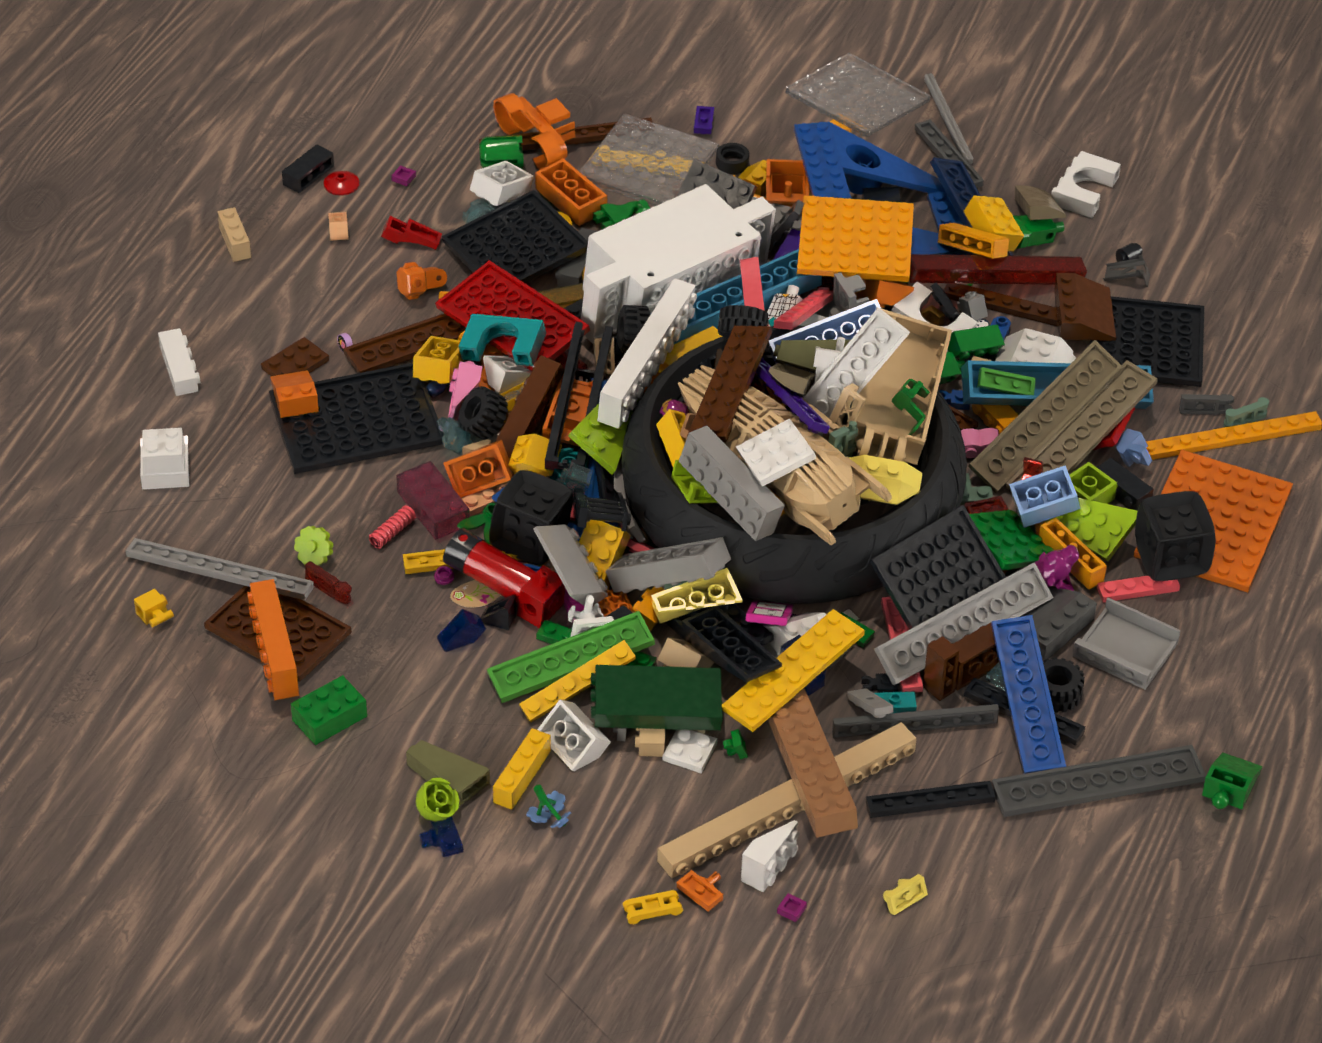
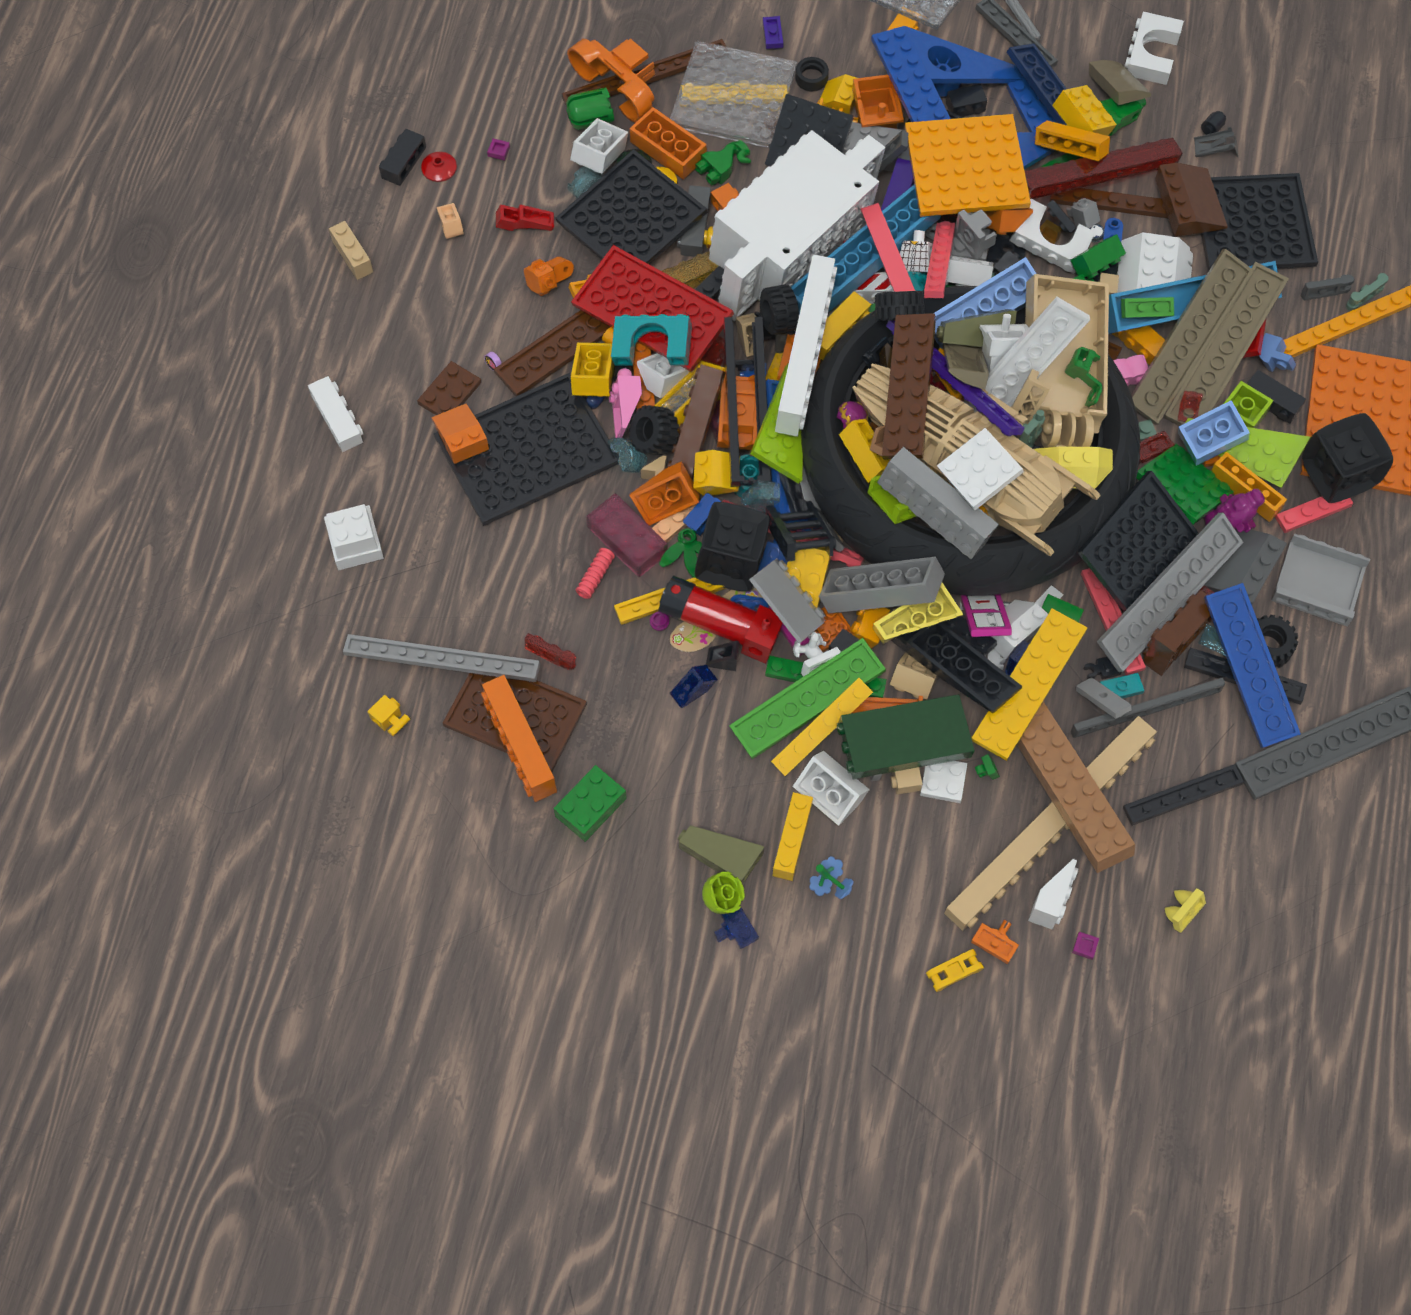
camera: 10 degrees left, 20 degrees up
(313, 545) = (526, 614): lime plant -> none

